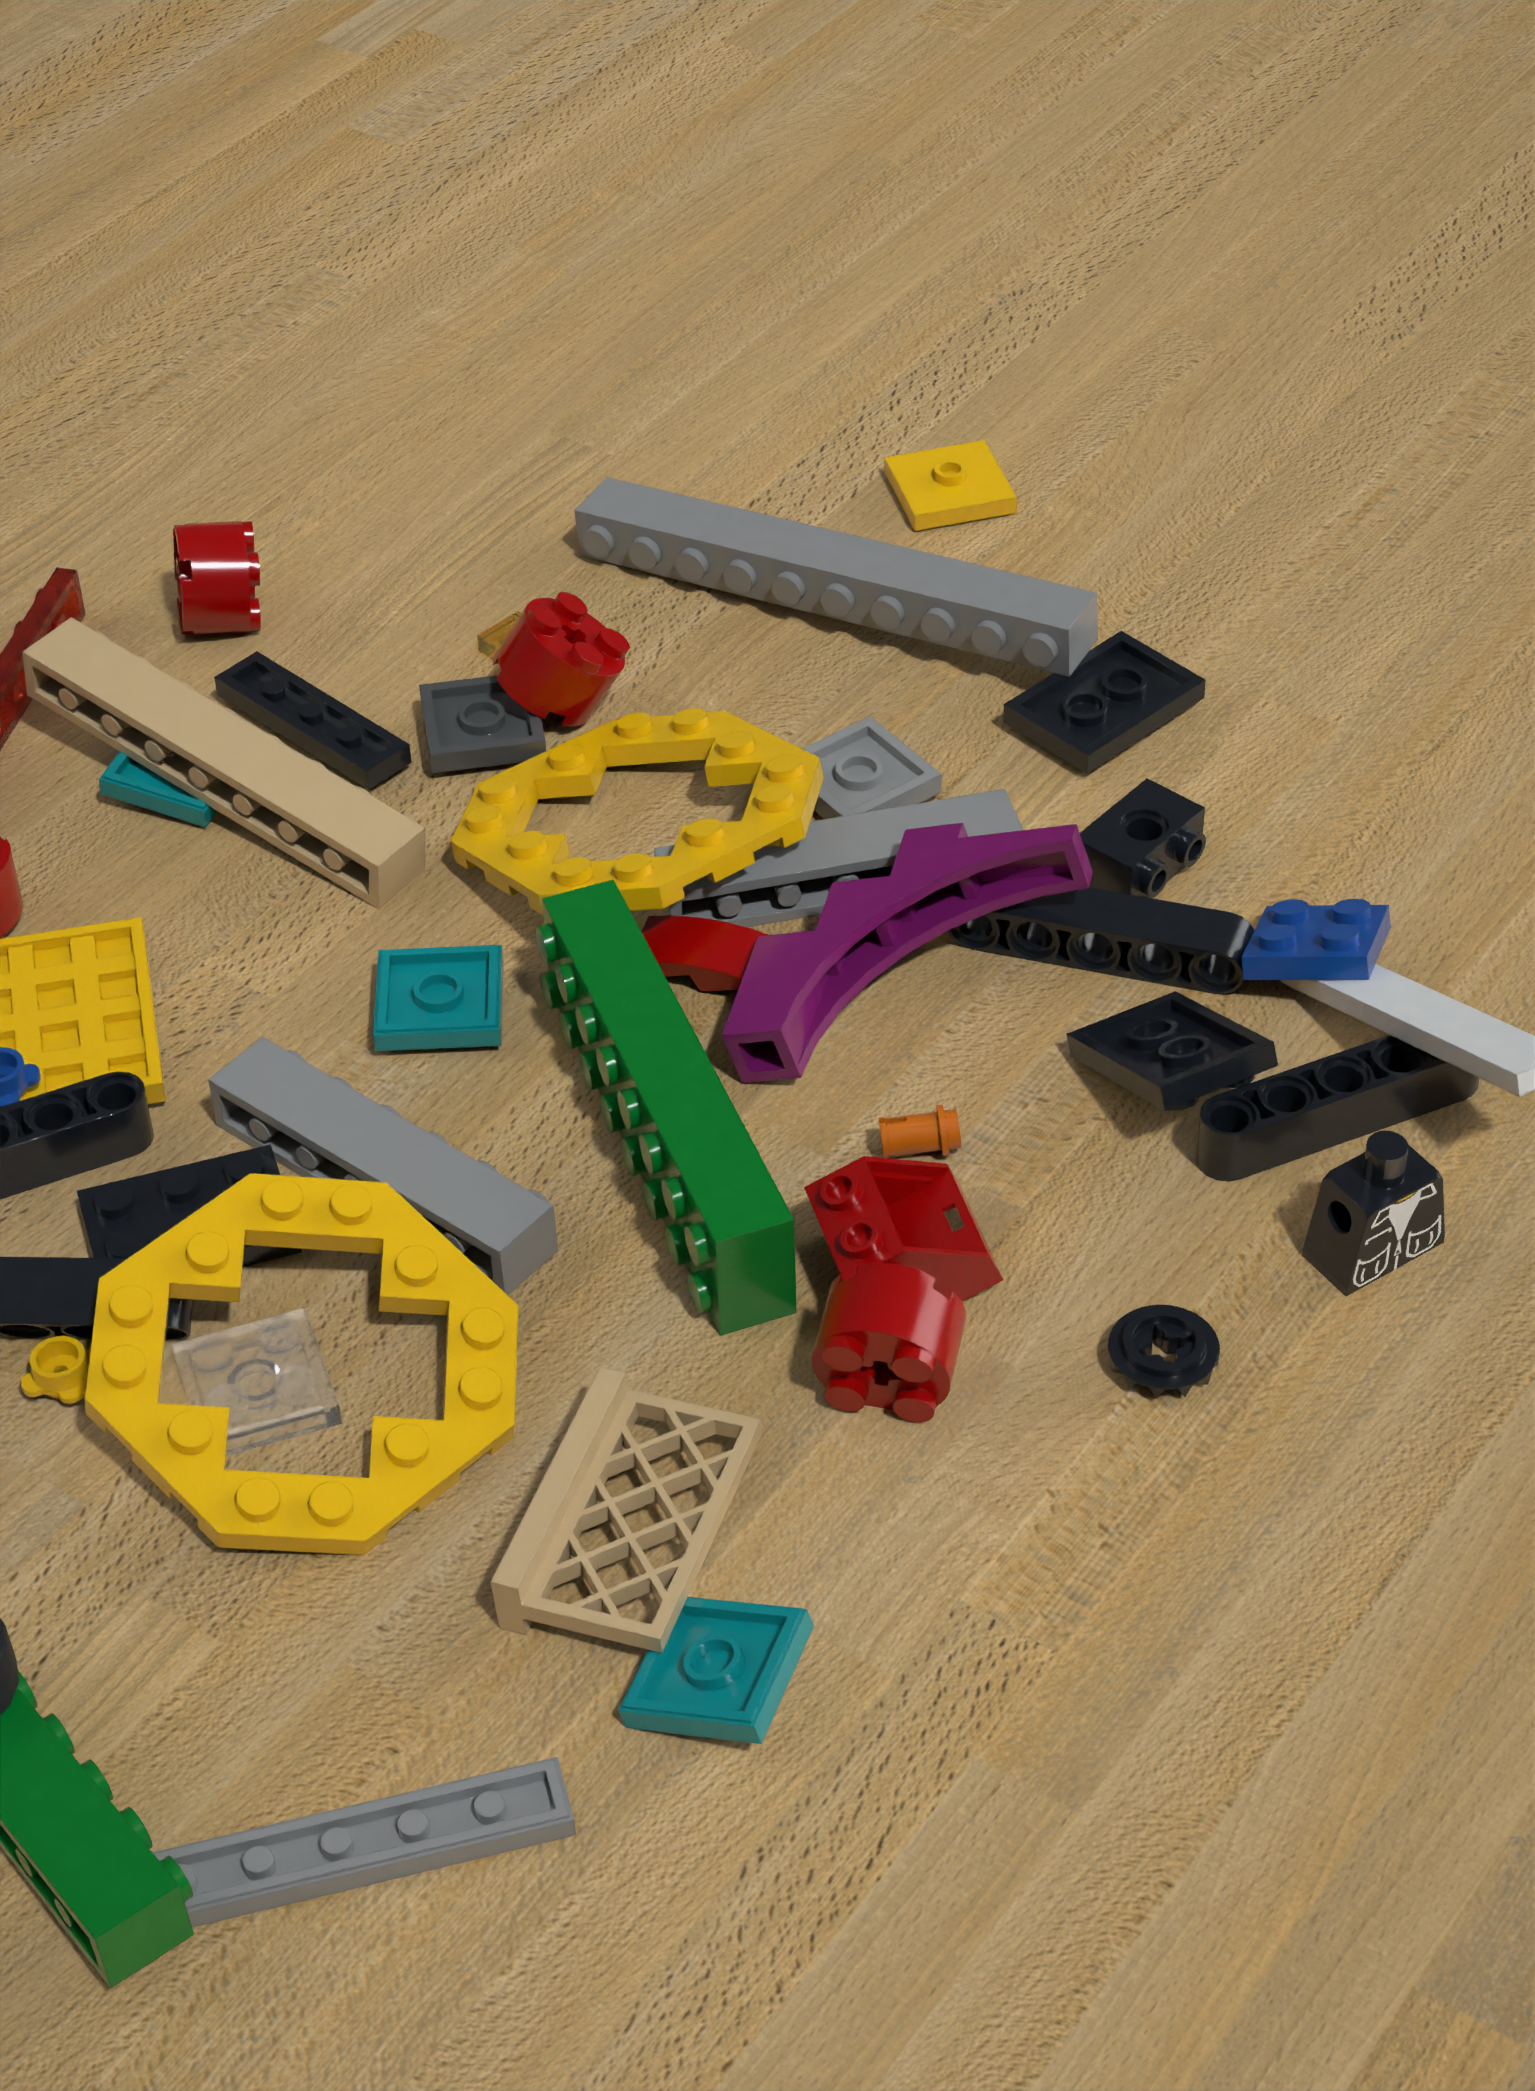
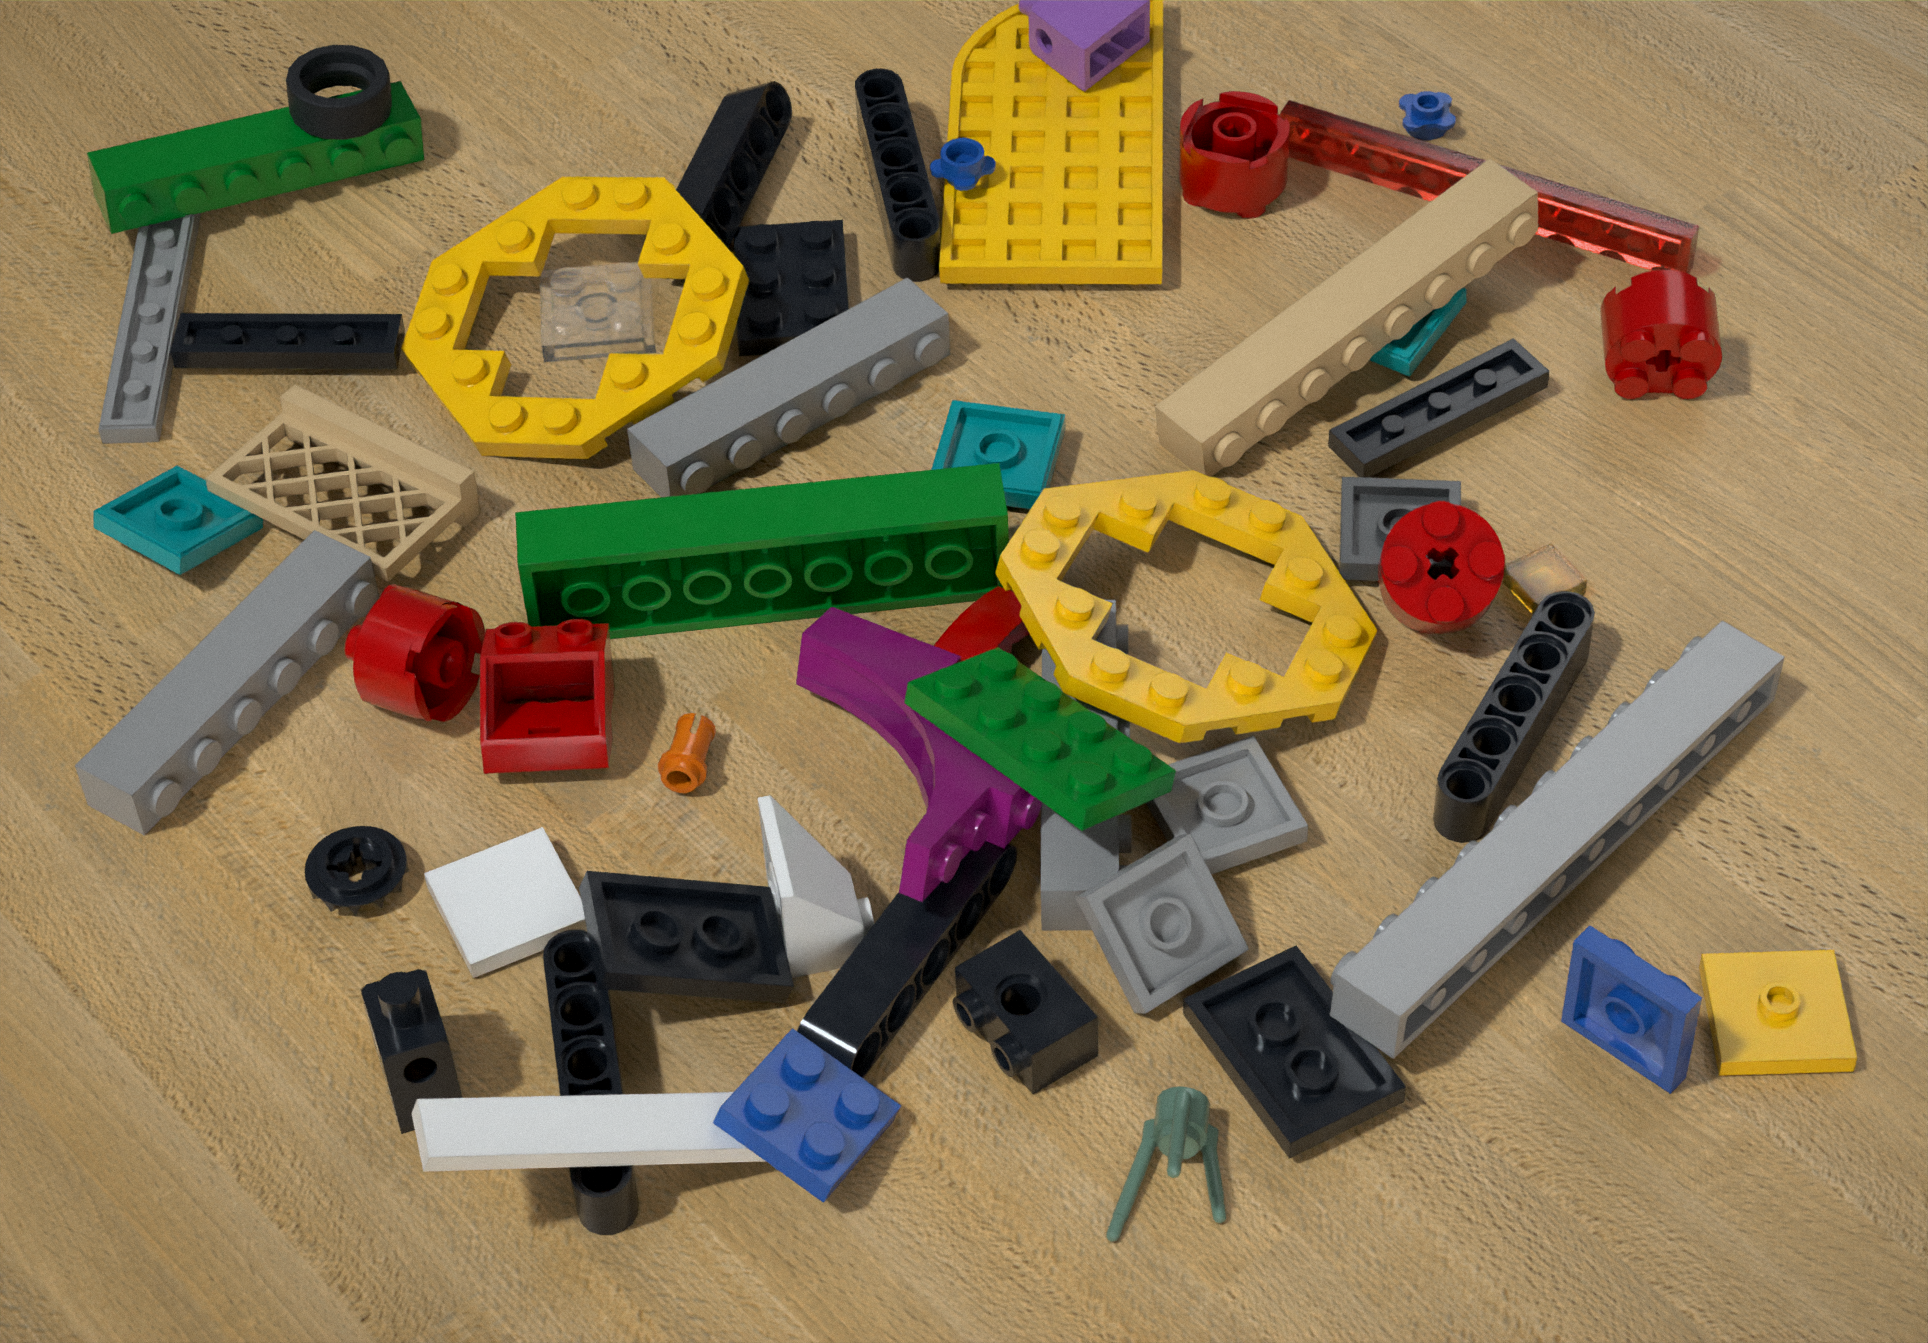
camera: 105 degrees right, 5 degrees up
(373, 1666) = (288, 341): none -> black plate
(710, 626) = (1513, 717): none -> black beam
(872, 835) = (1040, 738): none -> green plate
(958, 1526) = (227, 683): none -> light grey brick
(1011, 509) = (1631, 1008): none -> blue plate
(1020, 771) = (1162, 923): none -> light grey plate
(1087, 986) = (811, 895): none -> white slope
(1151, 1226) = (506, 901): none -> white tile
(1212, 744) = (1179, 1133): none -> sand green plant

